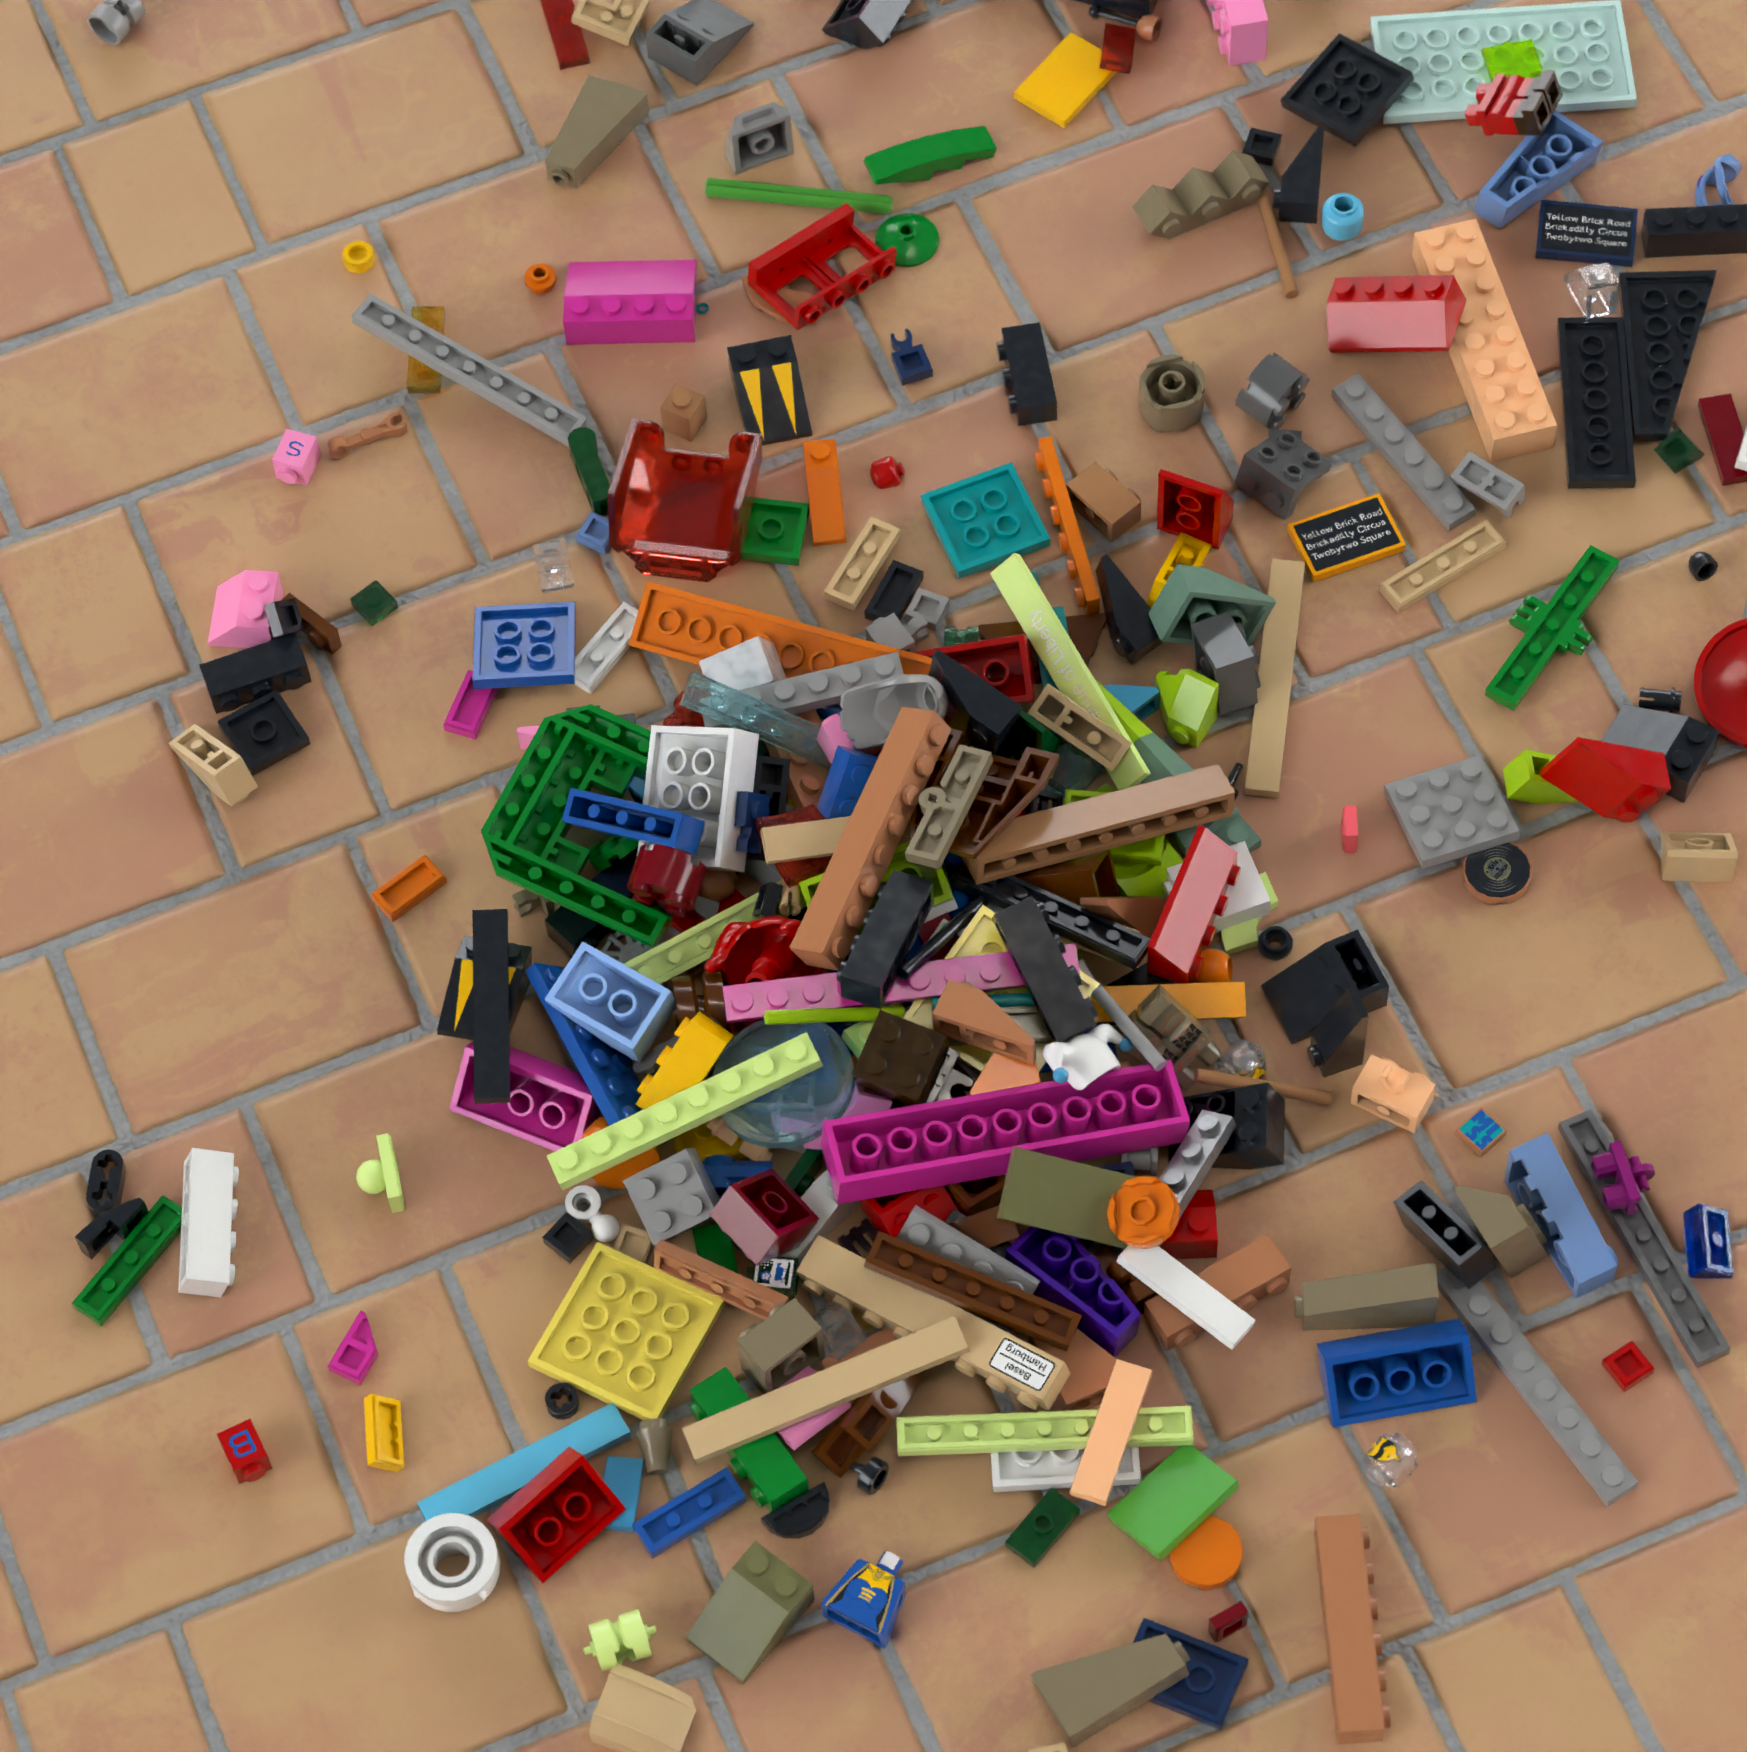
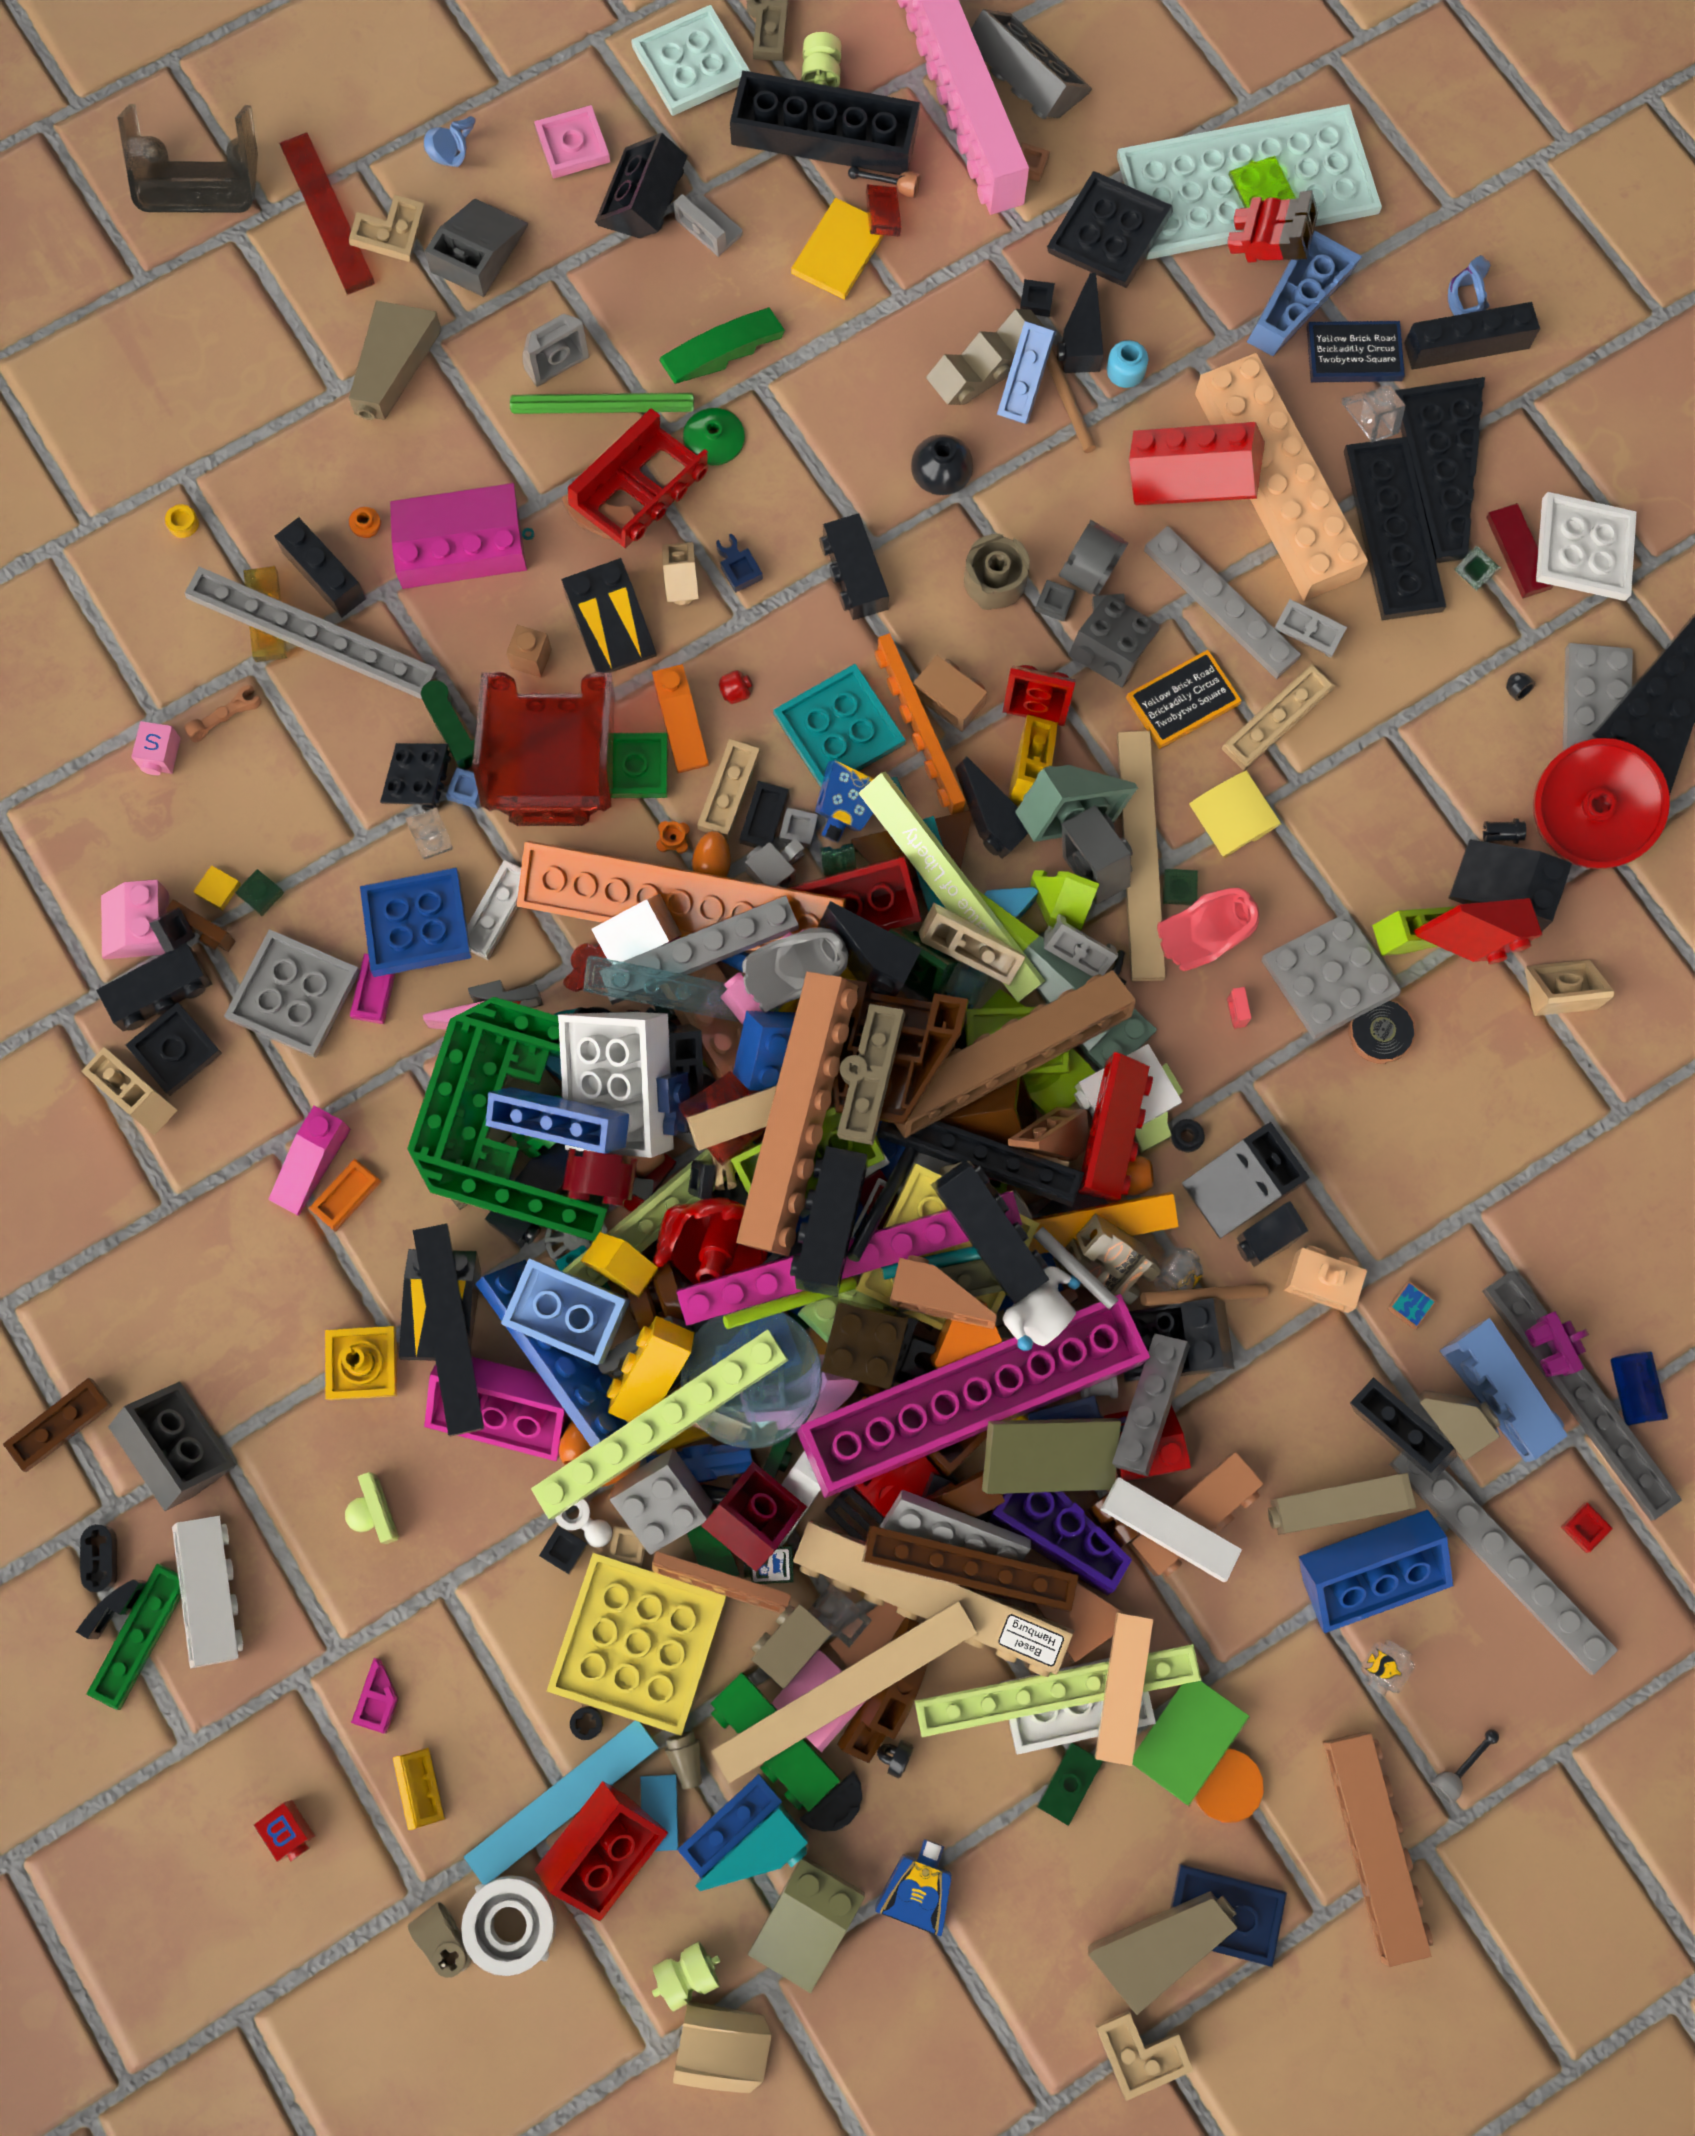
camera: 15 degrees left, 15 degrees up
(88, 1056) = (57, 1425): none -> reddish brown plate
(196, 1088) = (171, 1445): none -> dark grey slope
(332, 593) = (217, 888): none -> yellow tile
(379, 847) = (308, 1159): none -> slope
(381, 1573) = (438, 1937): none -> dark tan piece
(390, 697) = (292, 993): none -> light grey plate
(397, 1040) = (360, 1363): none -> yellow plate
(488, 312) = (320, 567): none -> black brick
(550, 512) = (416, 774): none -> black hinge
(672, 962) = (620, 1263): none -> yellow slope
(710, 1531) = (763, 1850): none -> teal slope
(797, 593) = (670, 828): none -> orange plate
(835, 616) = (712, 855): none -> orange animal
(849, 360) = (680, 572): none -> tan slope
(935, 42) = (707, 223): none -> light grey panel
(974, 586) = (841, 800): none -> blue torso
(1135, 290) = (938, 473): none -> black piece
(1143, 1212) = (1122, 1462): orange tile -> none
(1190, 745) = (1079, 948): none -> light grey hinge
(1228, 1621) = (1262, 1859): dark red tile -> none
(1230, 430) = (1055, 600): none -> dark grey tile
(1234, 211) = (1026, 372): none -> plate
(1281, 20) = (1036, 160): none -> nougat tile
(1309, 710) = (1180, 886): none -> clear green plate
(1332, 749) = (1208, 927): none -> coral hair
(1379, 649) = (1235, 813): none -> light yellow slope
(1436, 1583) = (1449, 1784): none -> hinge
(1551, 627) = (1391, 769): green hinge -> none

